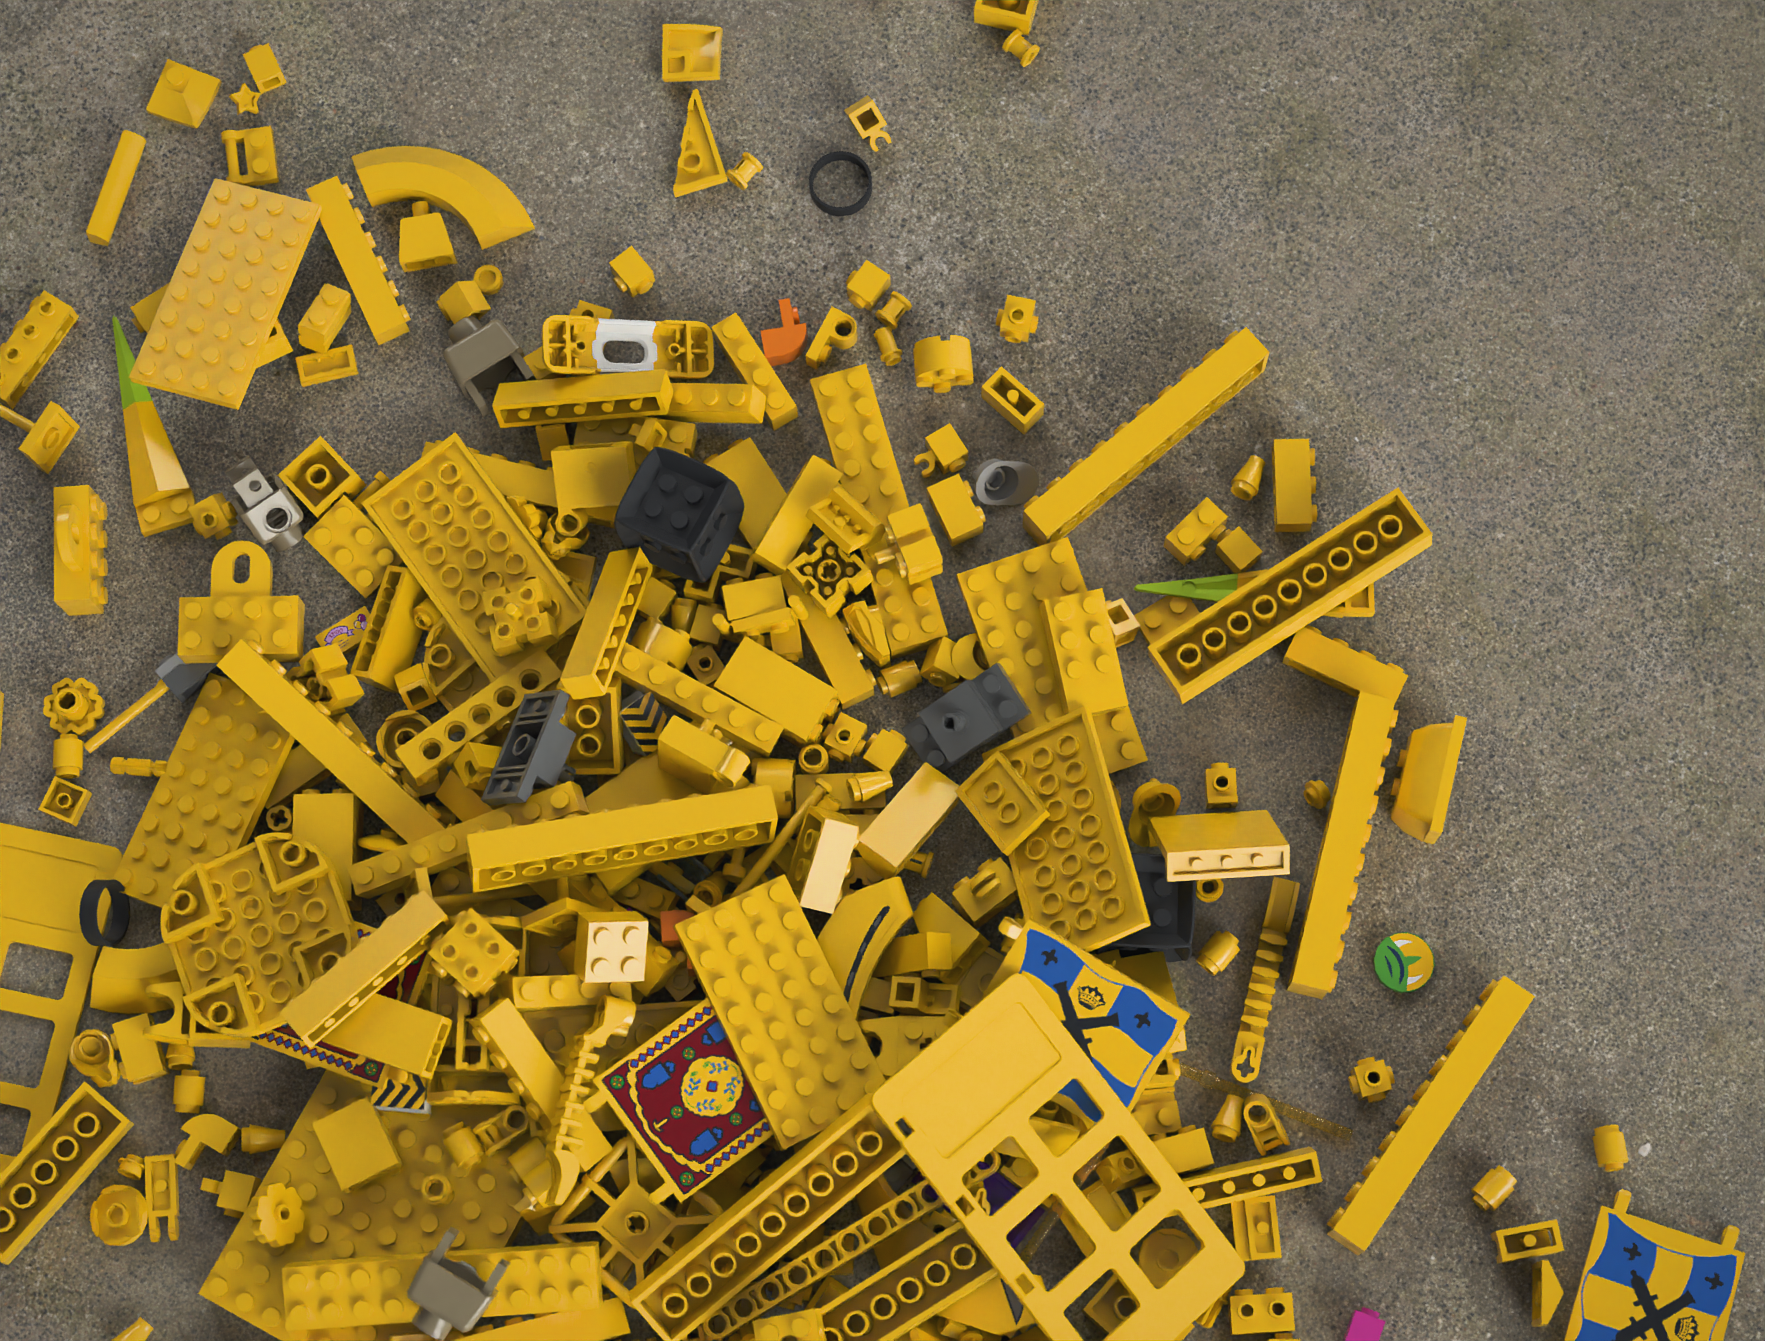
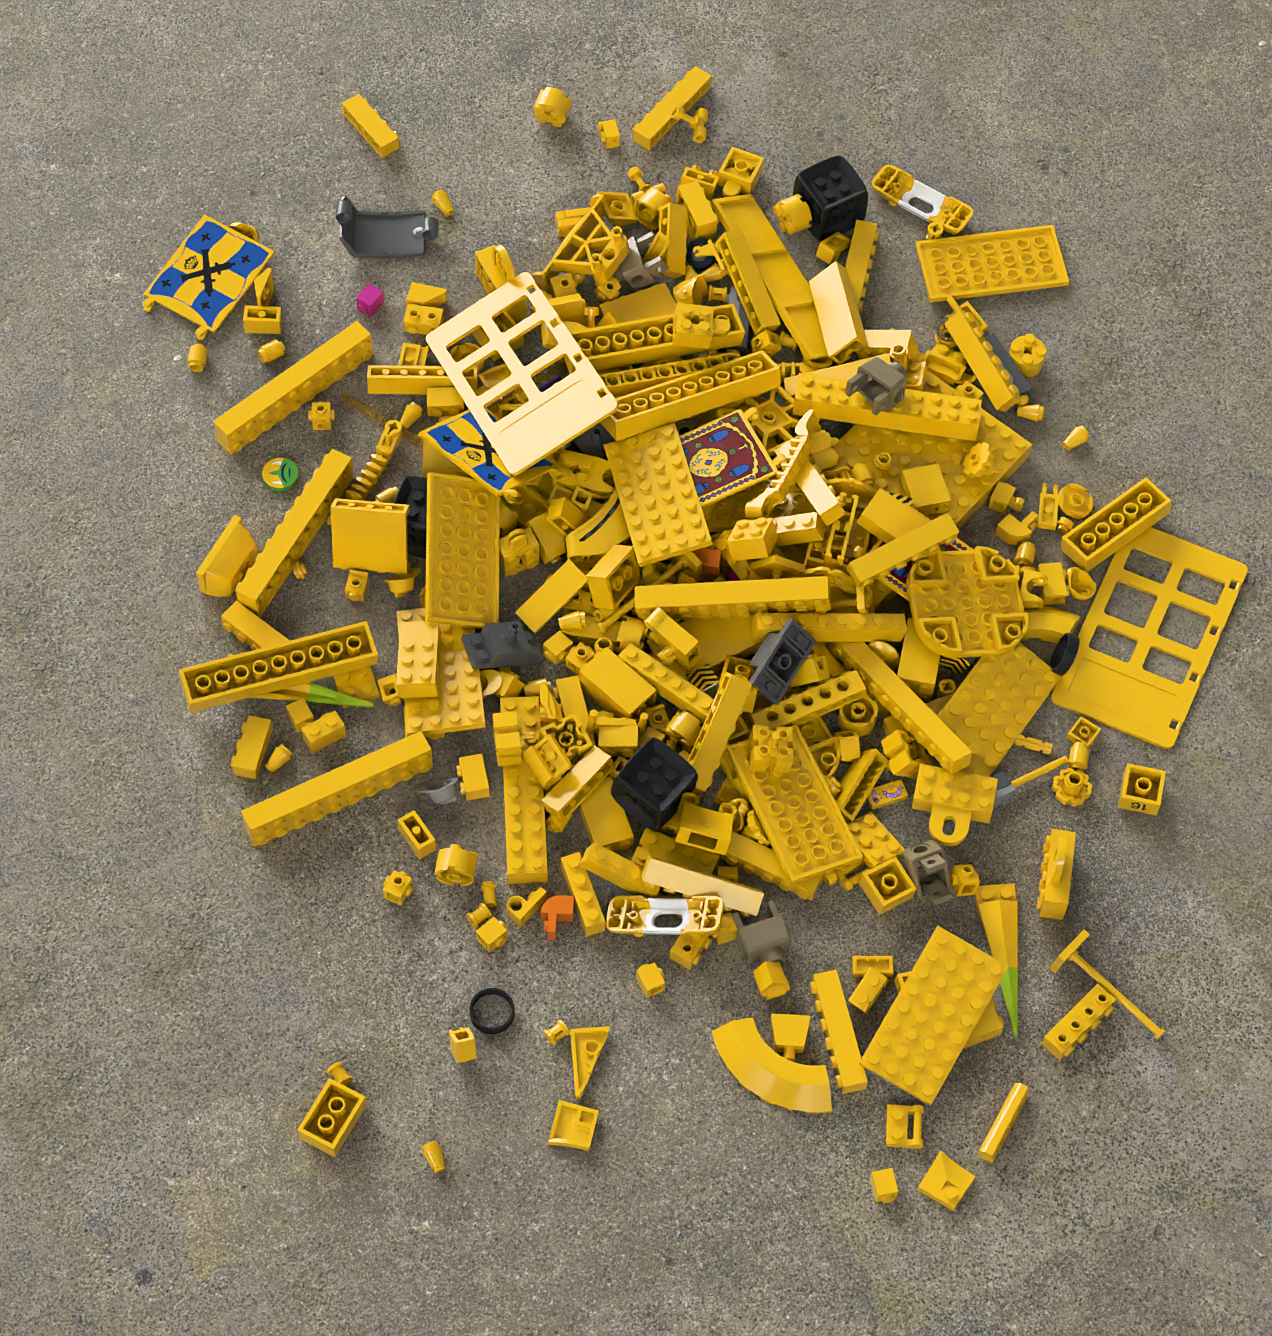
camera: 175 degrees left, 15 degrees down
(245, 100) = (902, 1166): yellow piece -> none
(261, 1139) = (984, 522): yellow cone -> none
(472, 954) = (836, 546): yellow brick -> none
(488, 279) = (751, 1002): yellow tile -> none
(648, 435) = (664, 849): yellow tile -> none
(944, 450) = (470, 819): yellow brick -> none
(1002, 802) = (494, 585): yellow plate -> none
(1265, 1129) = (390, 406): yellow piece -> none

